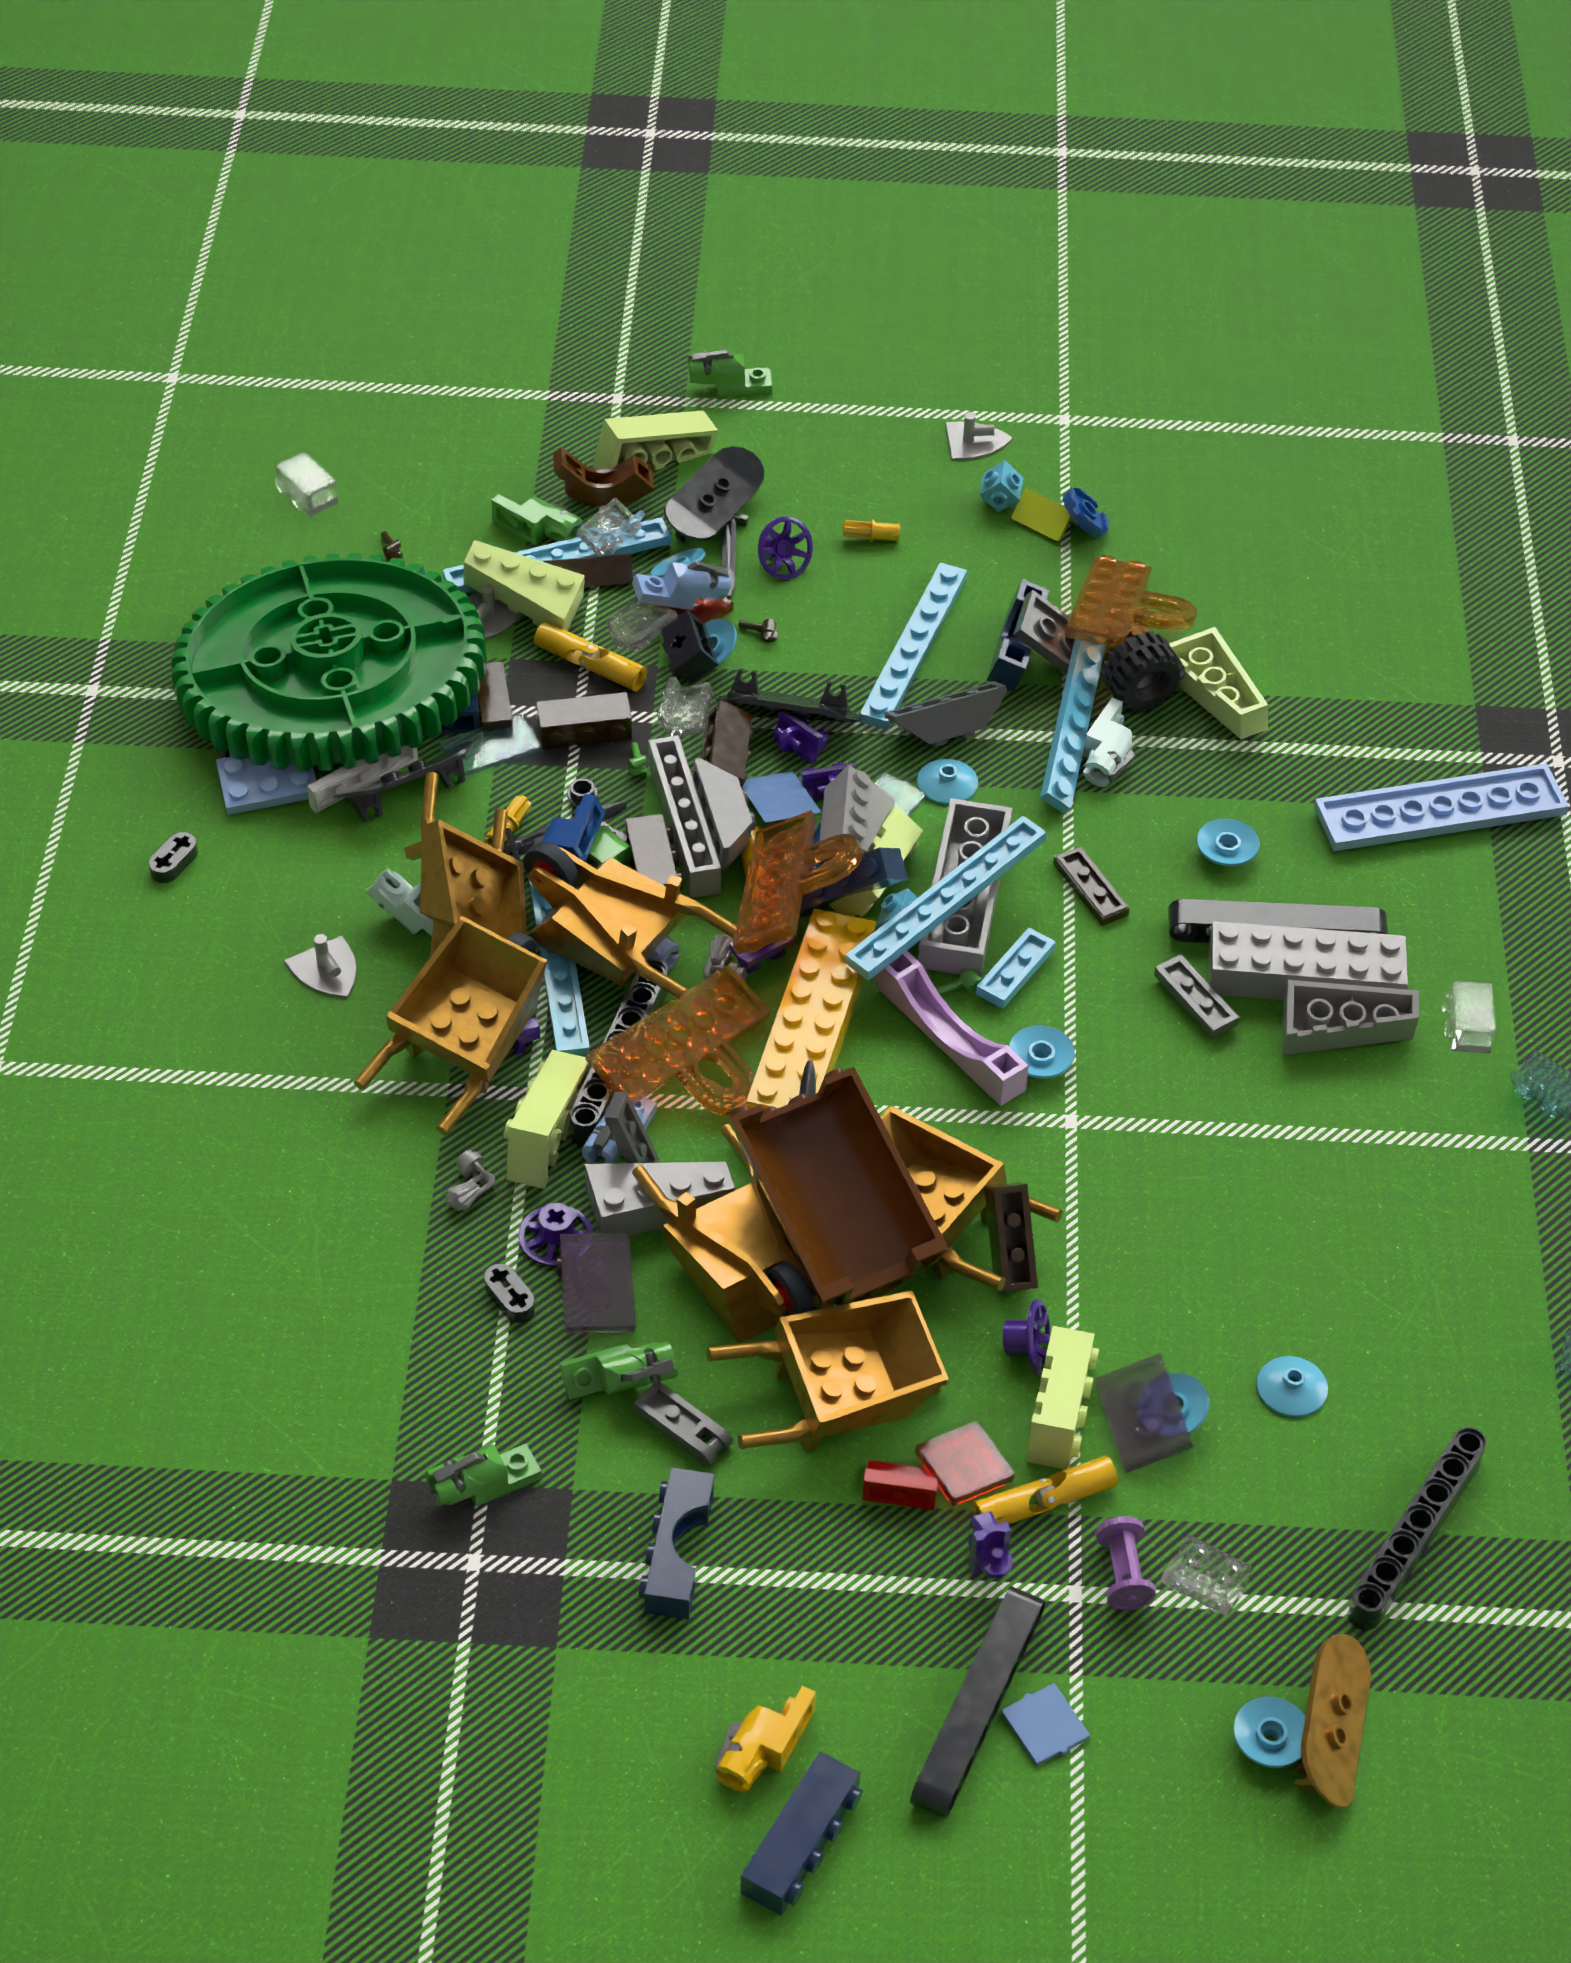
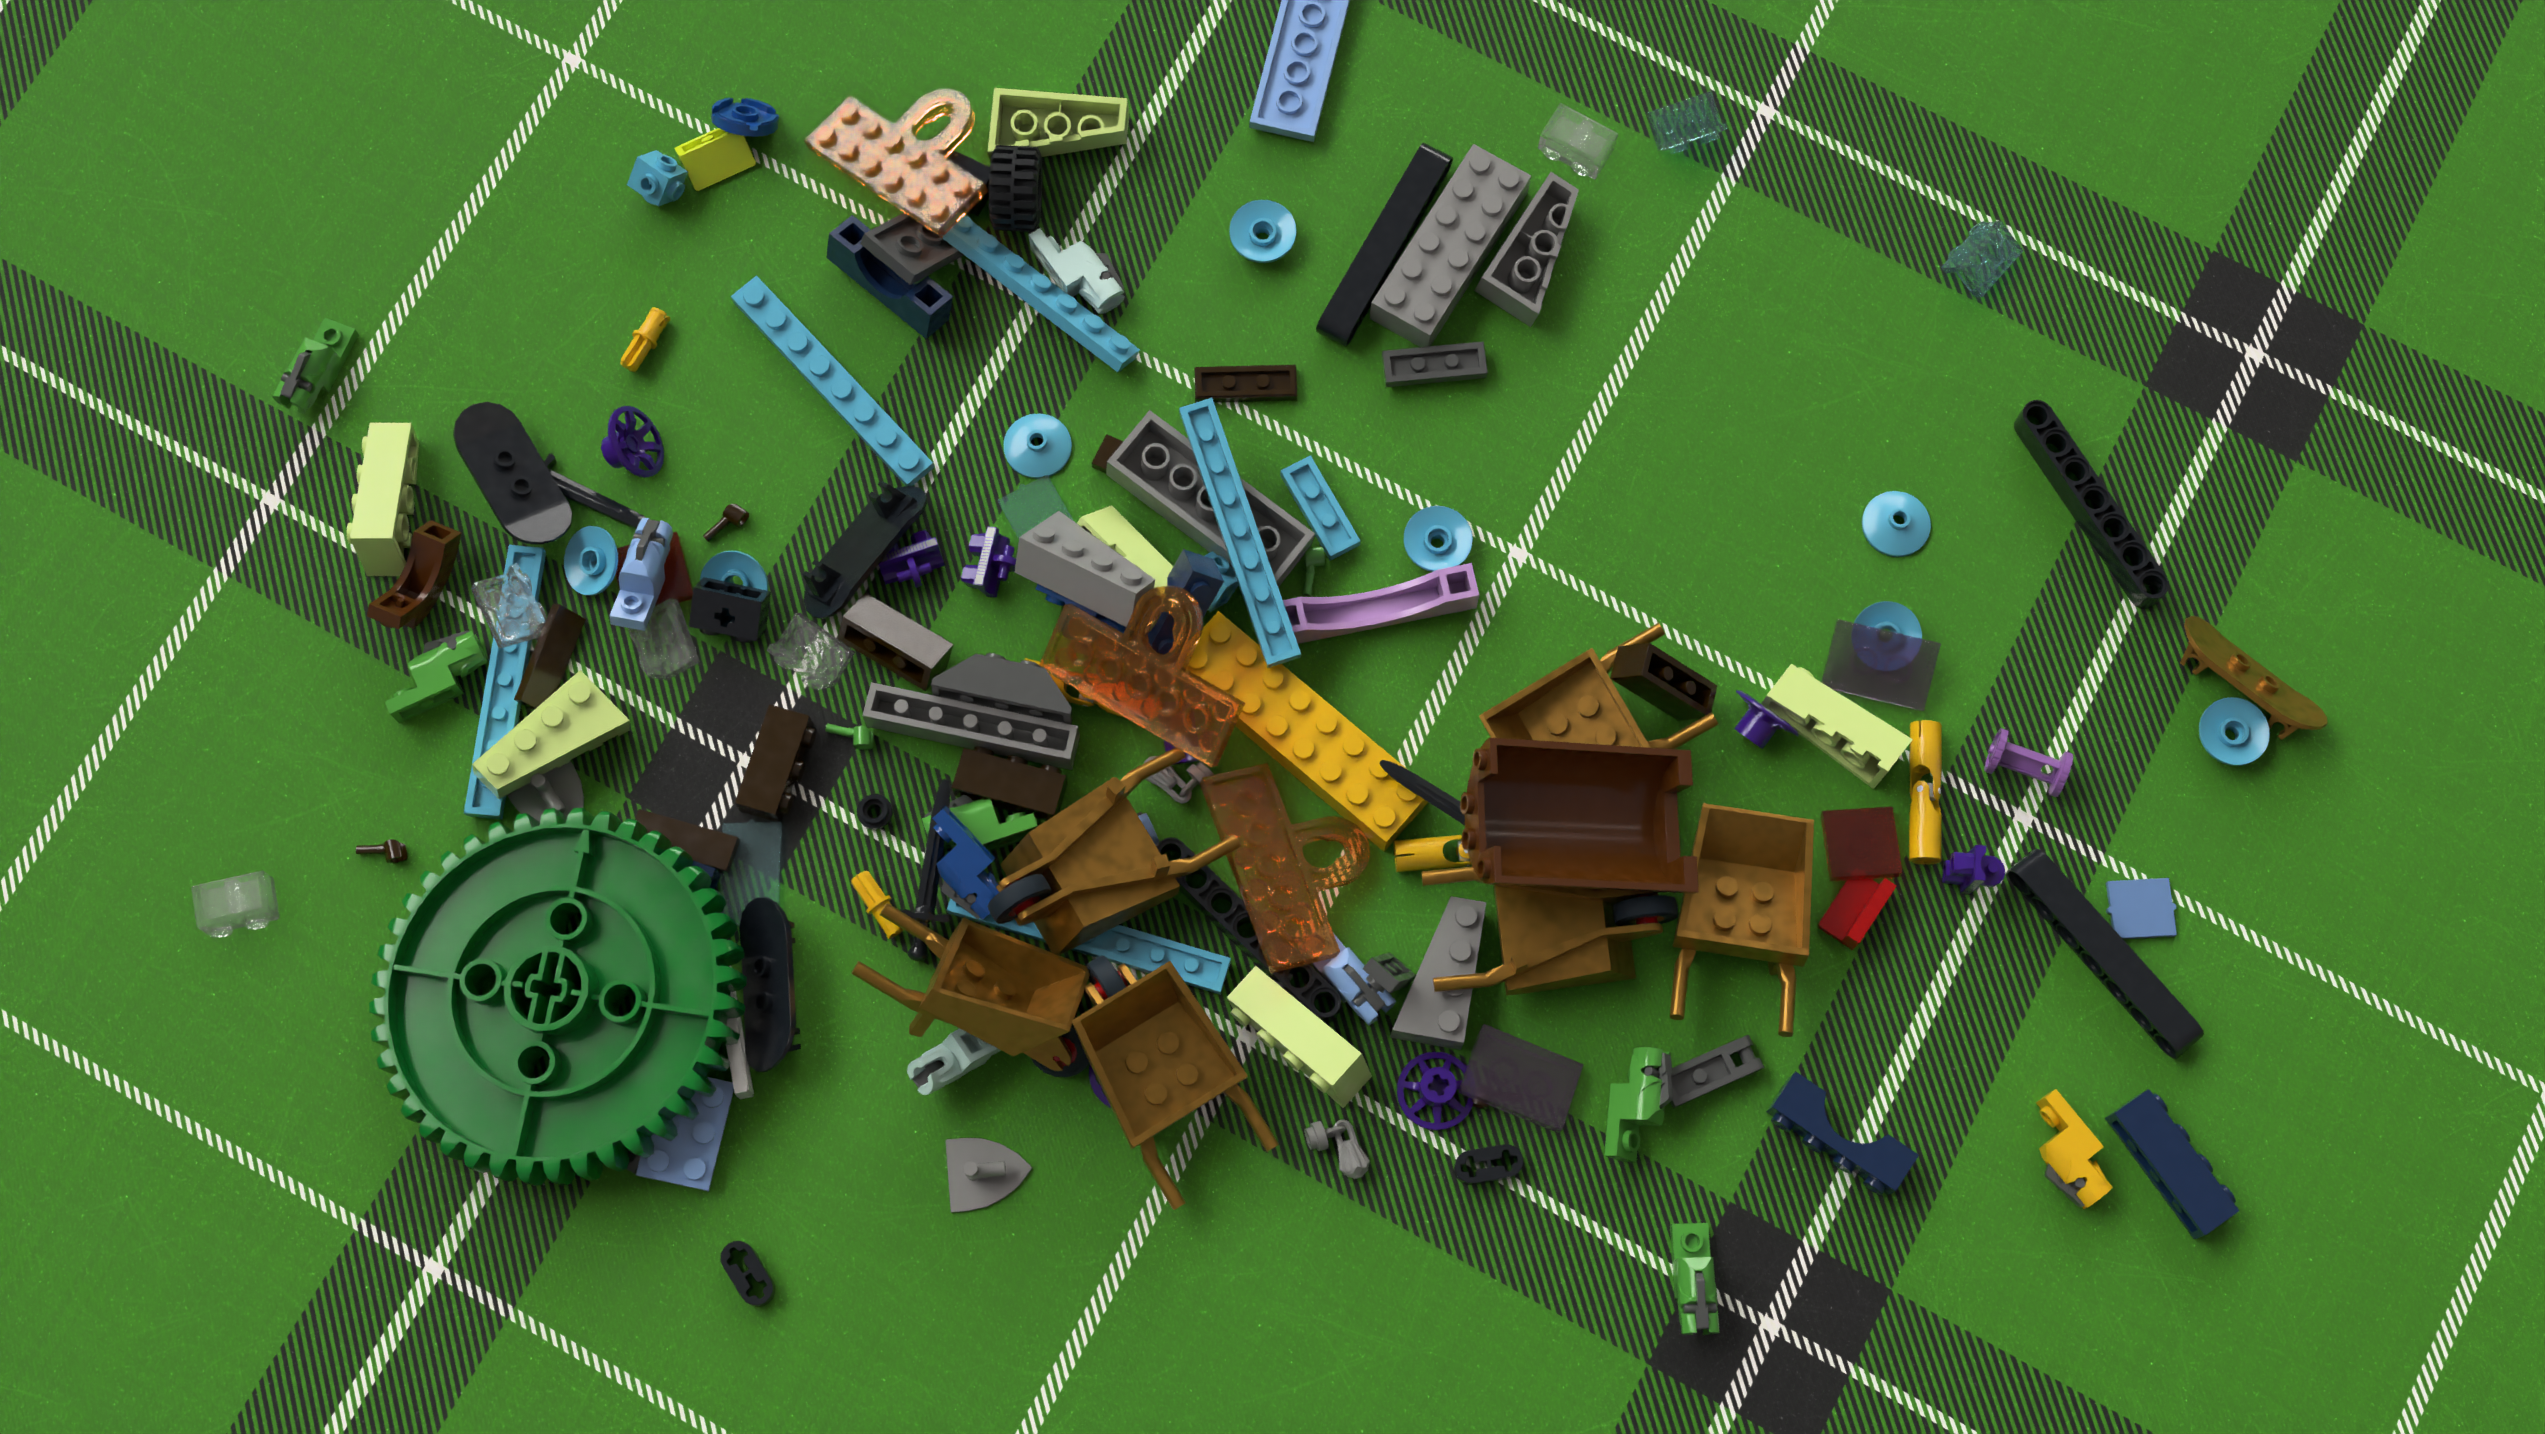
camera: 65 degrees left, 25 degrees up
(590, 656) = (666, 722): yellow piece -> none
(779, 796) = (997, 620): medium blue sticker -> none
(950, 715) = (959, 399): dark grey wedge -> none
(974, 440) = (553, 165): light grey shield -> none
(1207, 1575) = (2066, 703): clear bracket -> none

